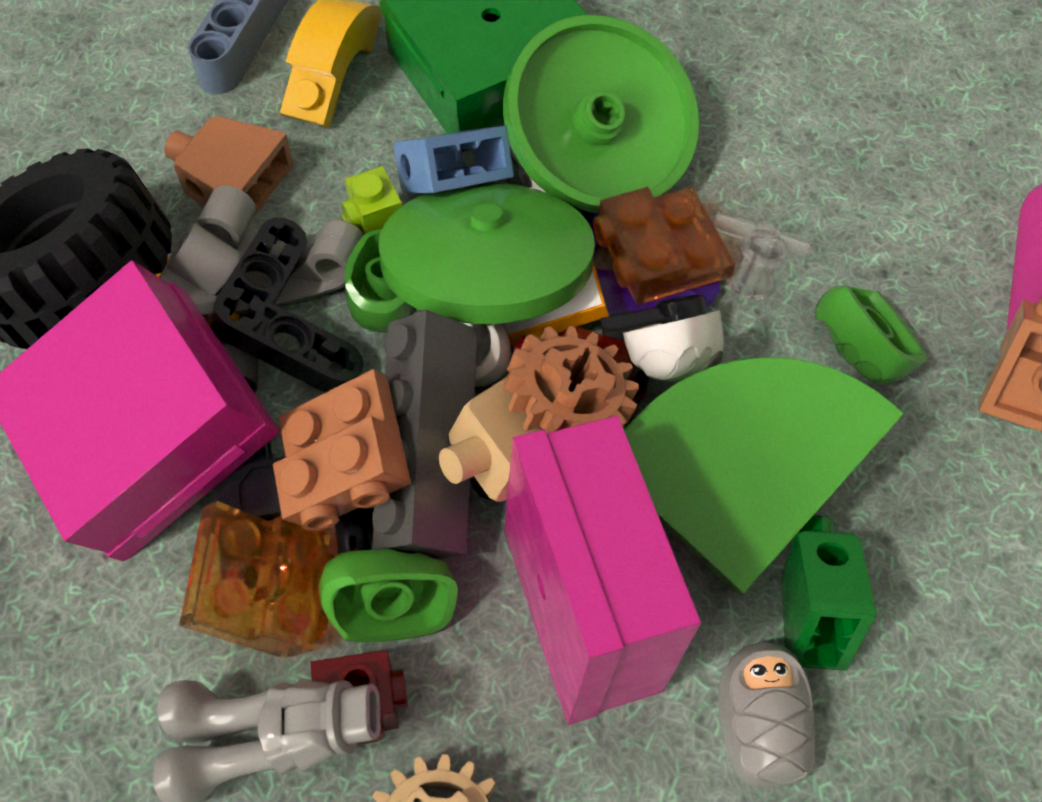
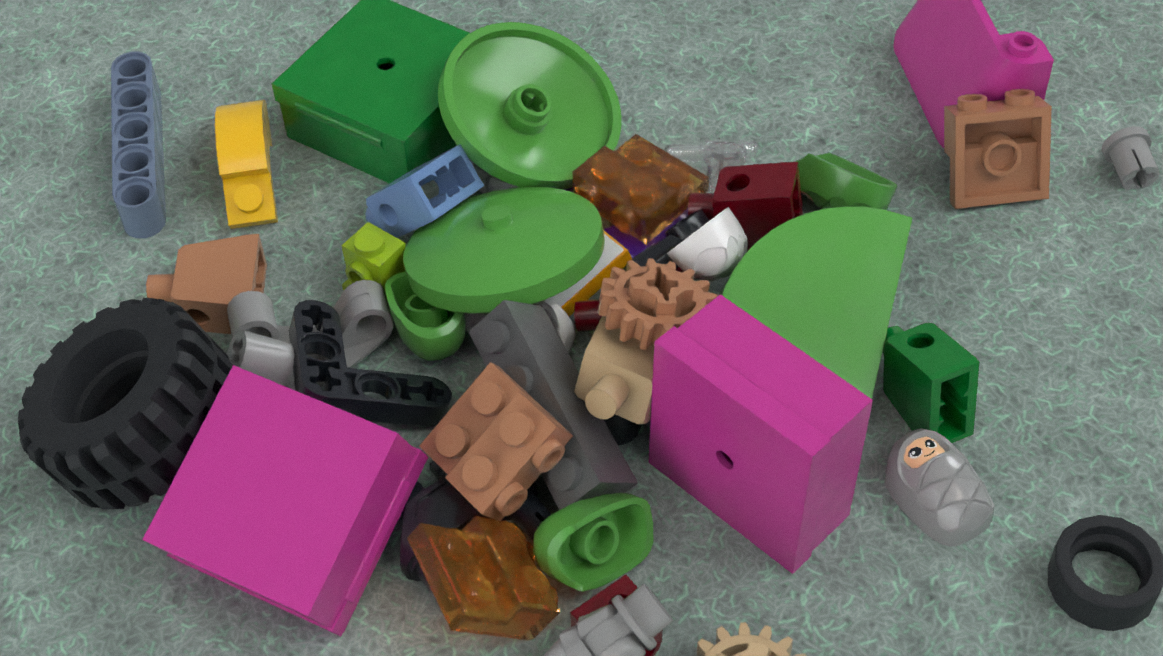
camera: 25 degrees left, 10 degrees down
(762, 313) = (757, 196): none -> dark red torso

